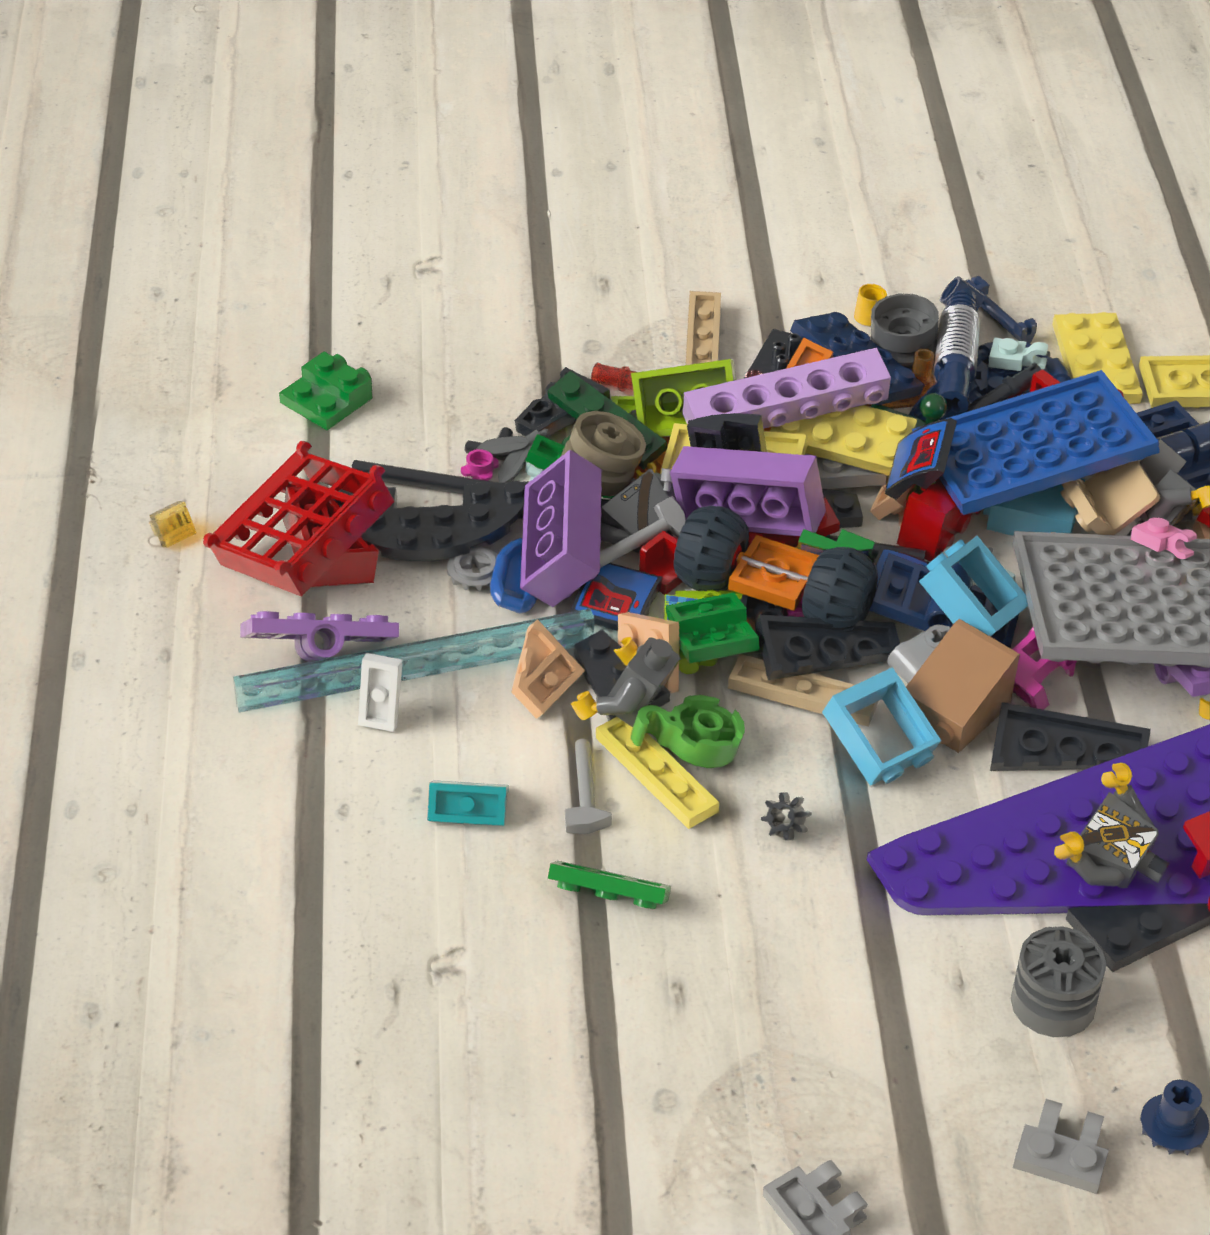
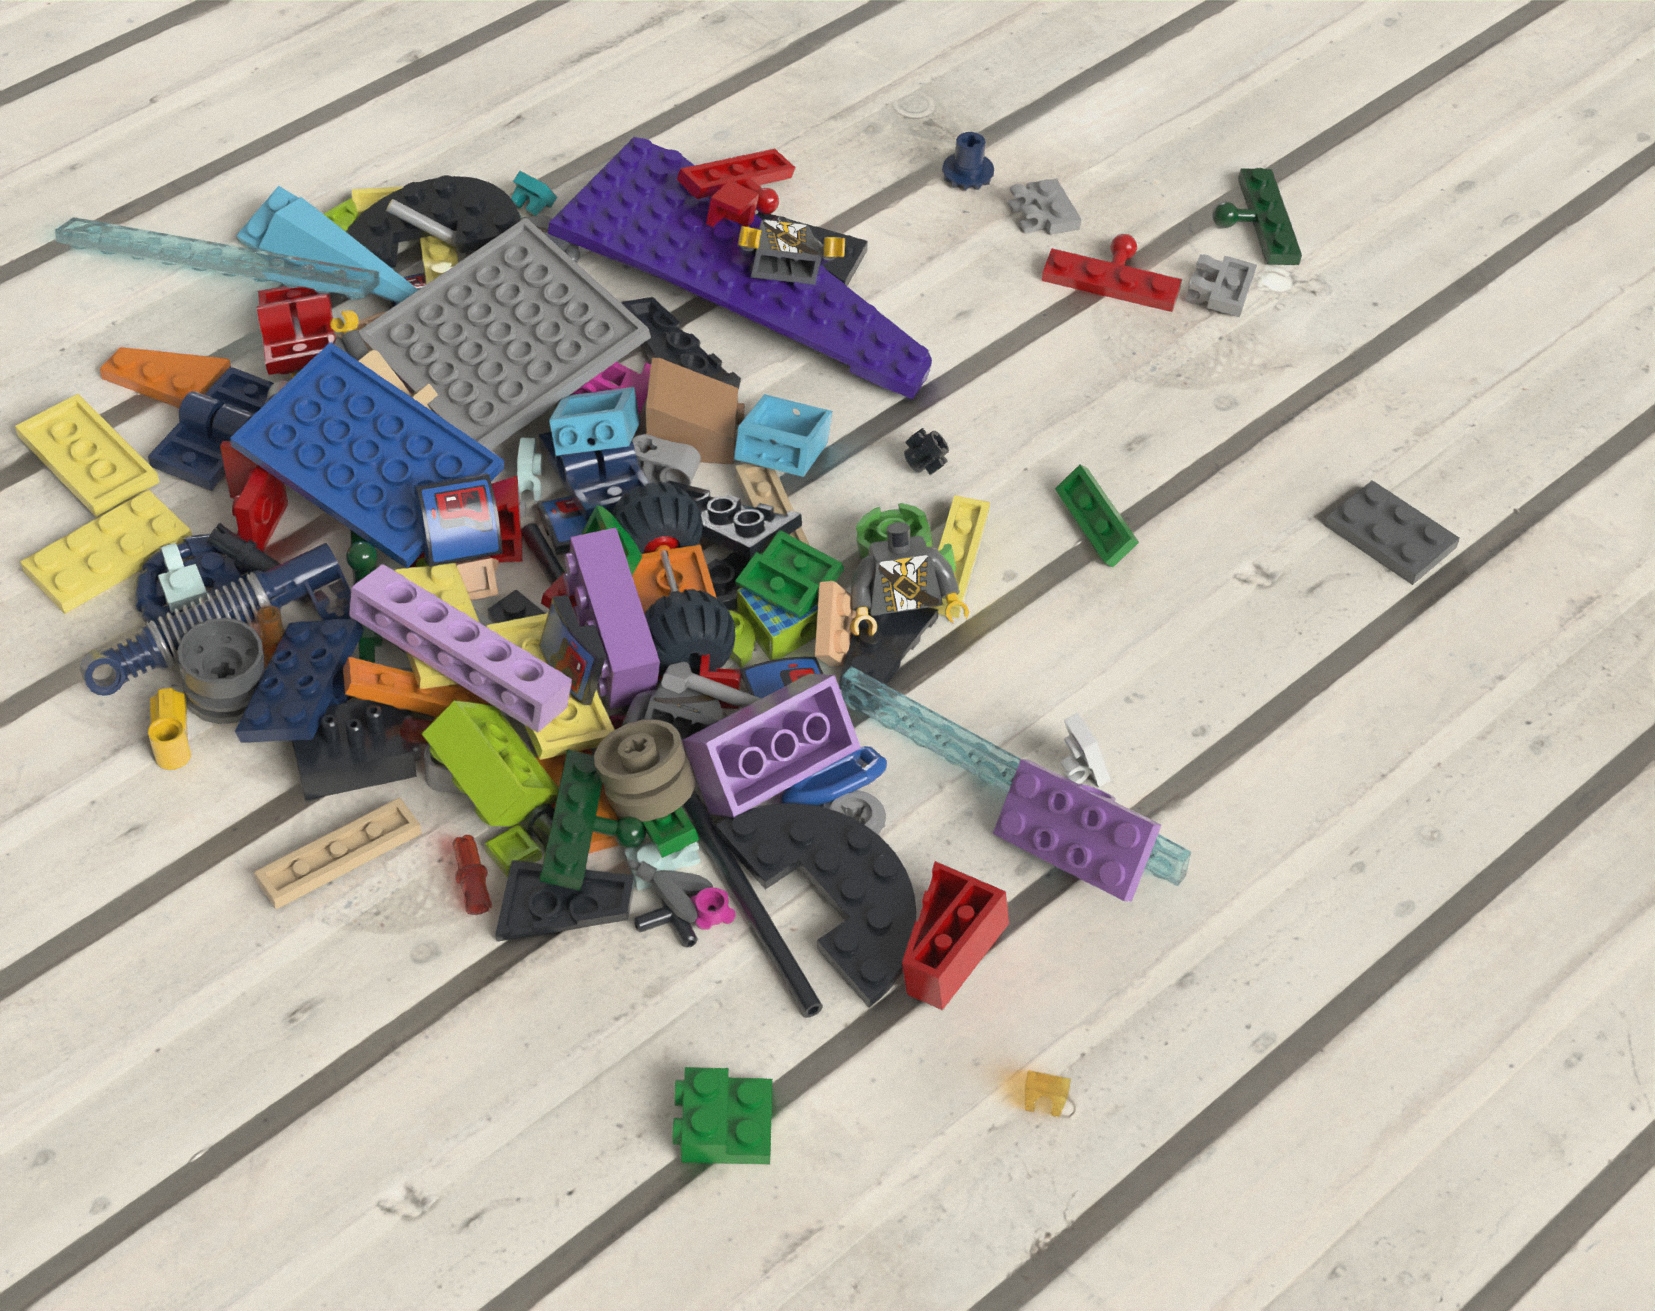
camera: 130 degrees left, 5 degrees up
(326, 546) = (968, 993): red window -> none
(390, 1091) = (1392, 532): none -> dark grey plate
(467, 802) = (1108, 649): teal panel -> none
(543, 670) = (938, 676): light nougat wing -> none
(585, 818) = (1043, 574): light grey piece -> none
(665, 476) = (630, 696): light grey piece -> none
(908, 1126) = (1113, 277): none -> red plate
(1021, 331) = (64, 690): dark blue hinge -> none
(1058, 981) = (928, 244): dark grey wheel -> none
(1161, 536) = (405, 352): bright pink plate -> none

